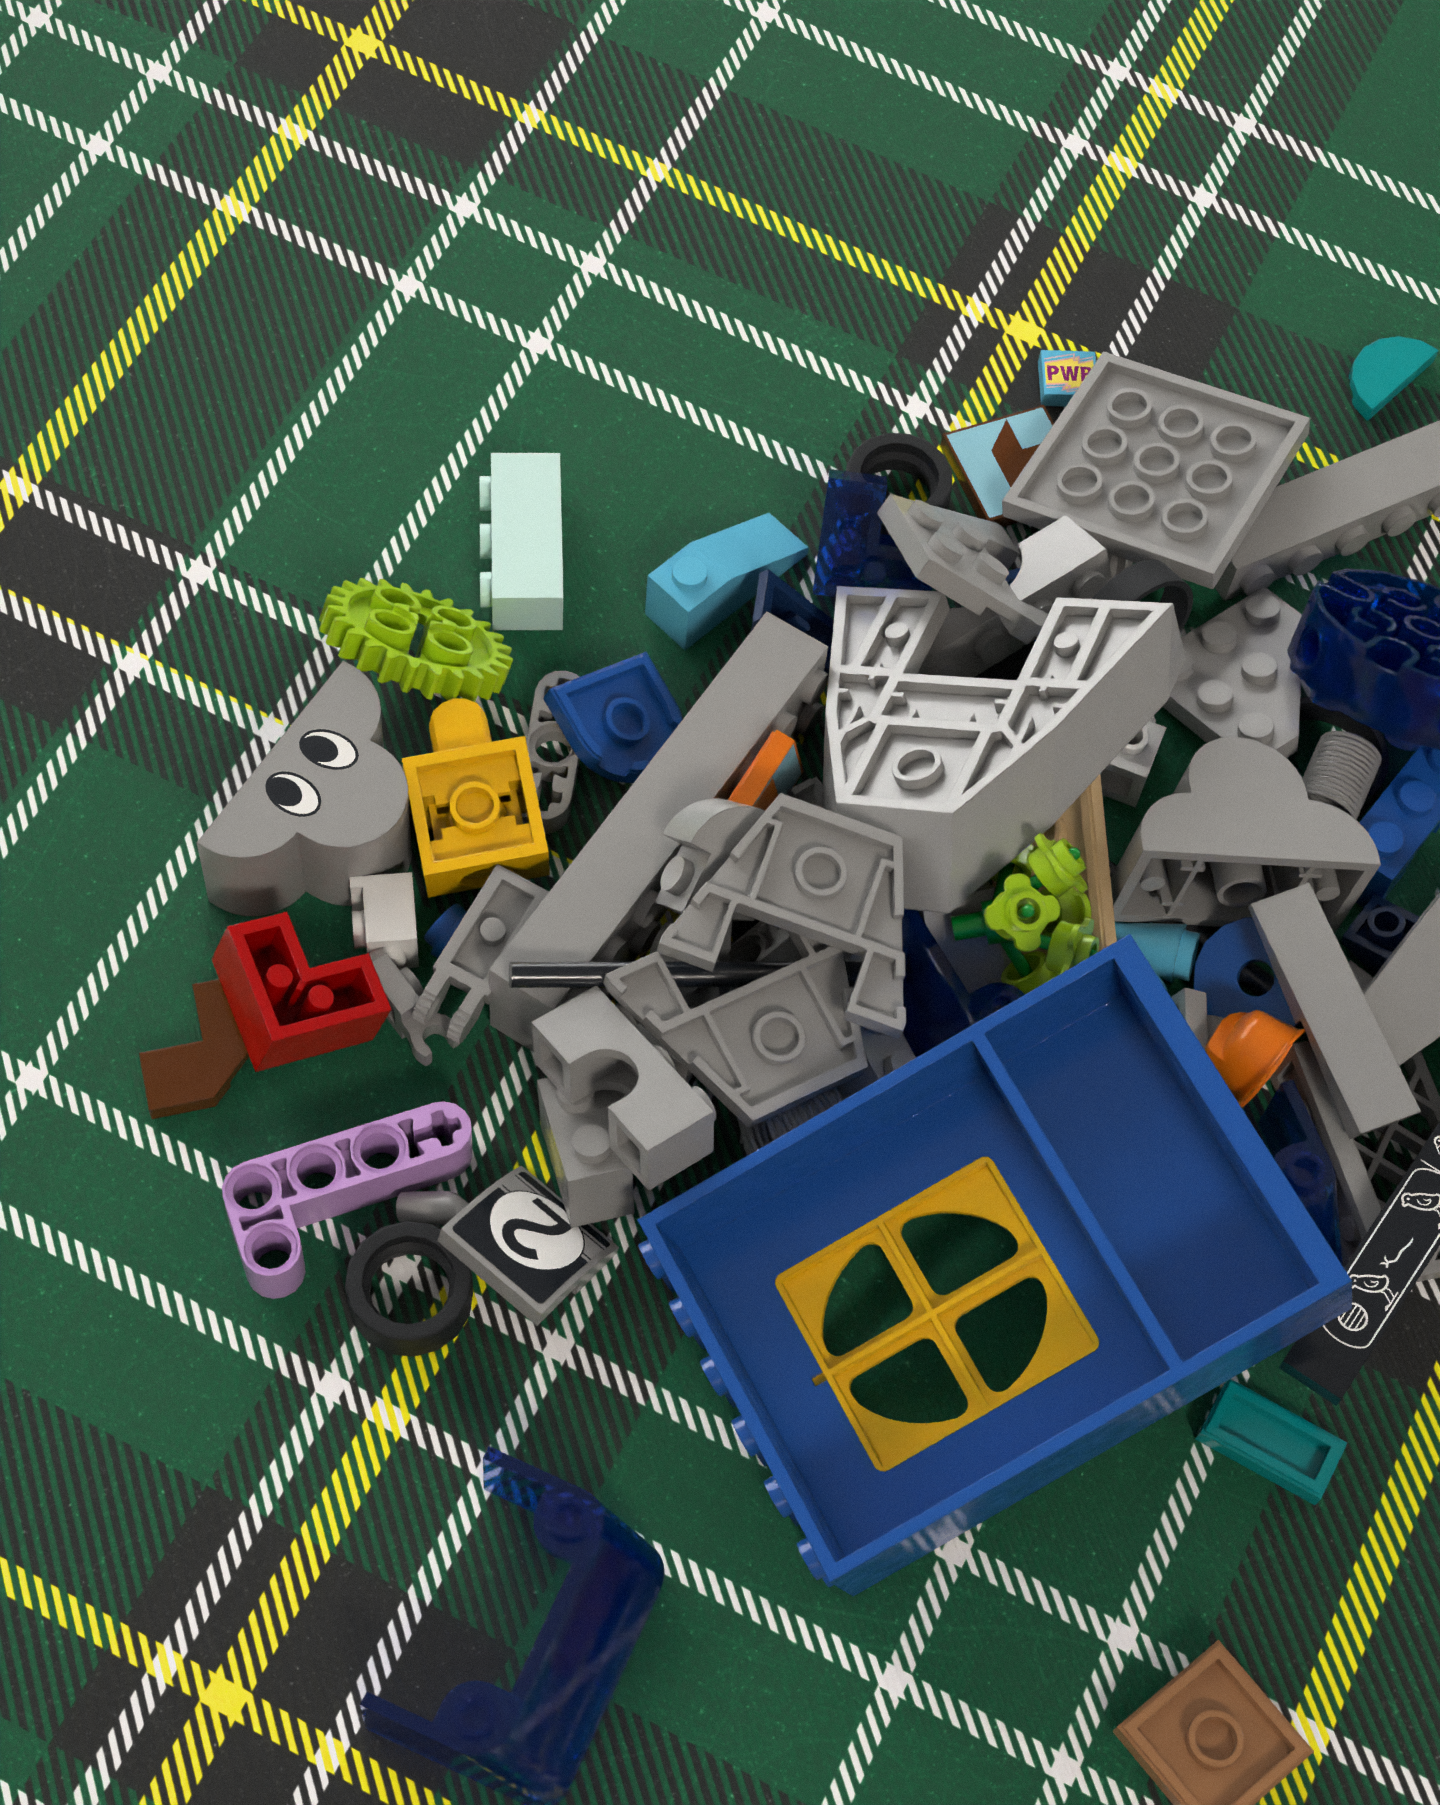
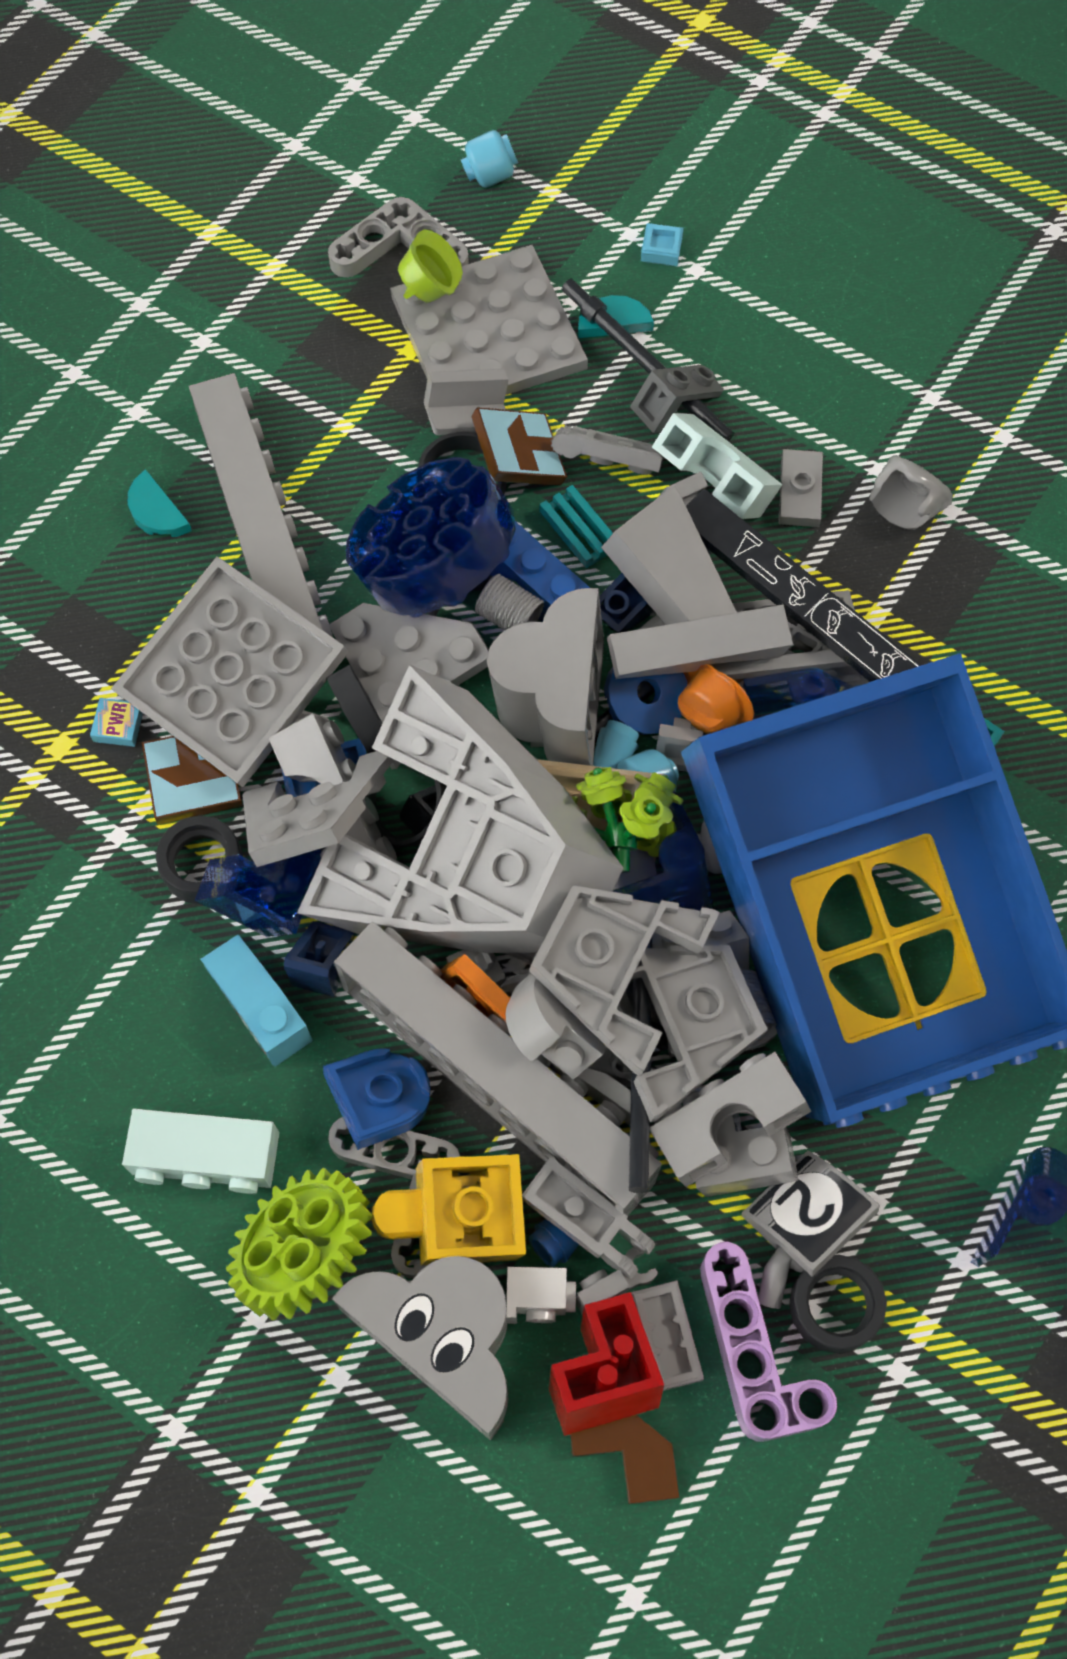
camera: 75 degrees left, 5 degrees up
(348, 1081) = (669, 1334): none -> light grey plate

